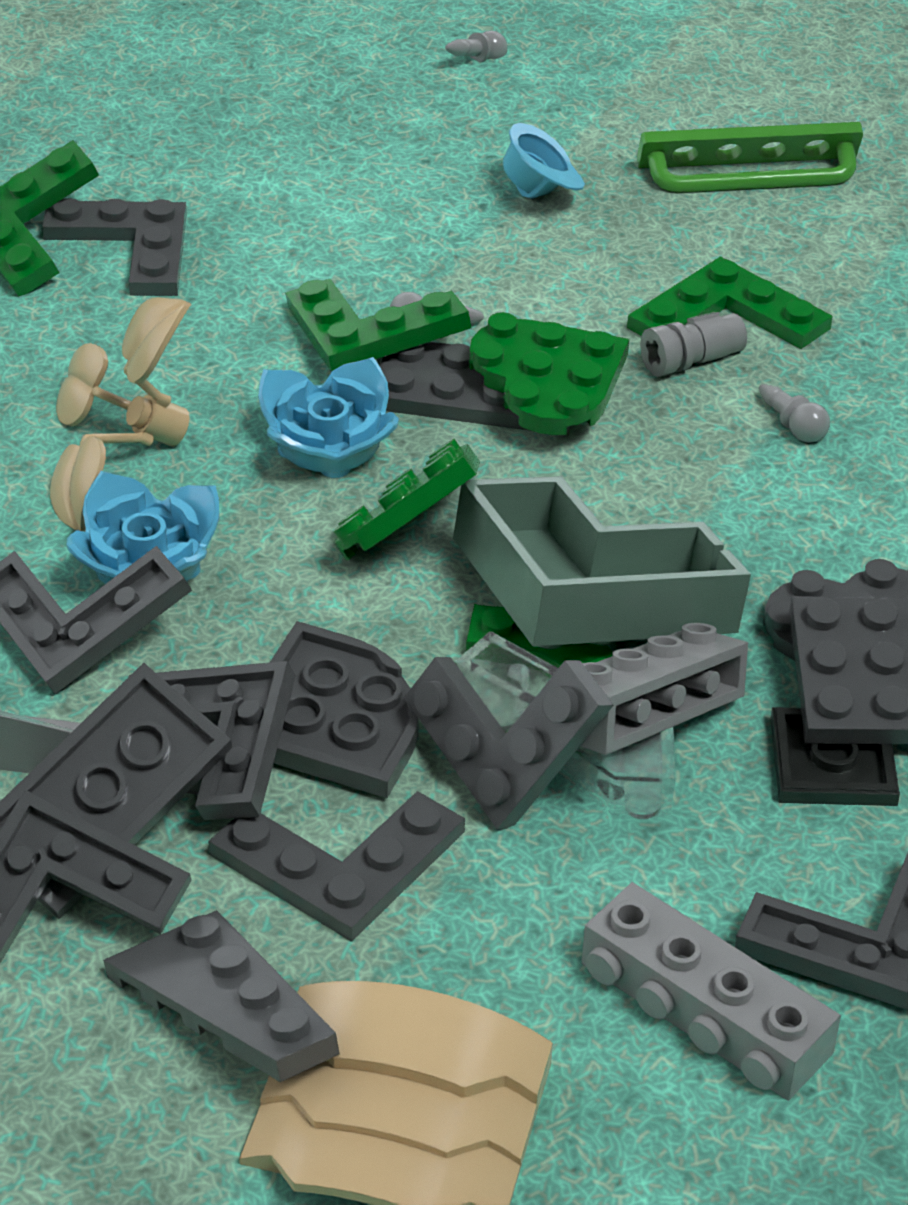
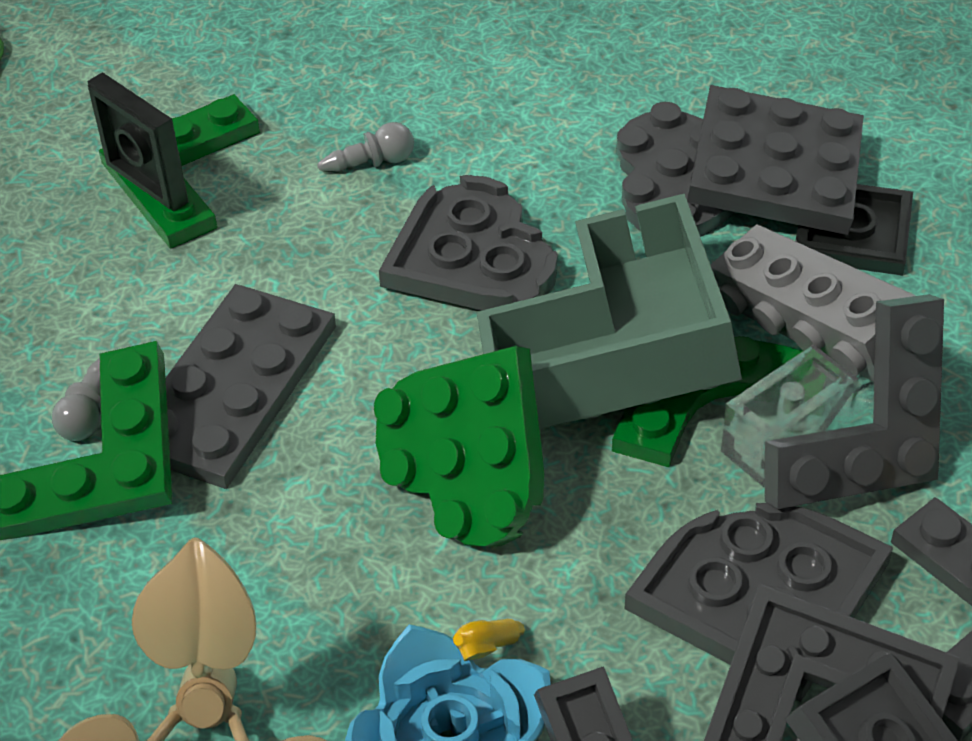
camera: 75 degrees left, 5 degrees up
(223, 534) = (482, 637): none -> yellow piece
(331, 423) = (274, 513): medium azure brick -> none
(548, 370) = (265, 301): green plate -> none
(683, 245) = (138, 141): none -> pearl dark grey tile
(690, 482) = (470, 248): none -> dark grey plate
(701, 340) = (242, 201): light grey axle -> none

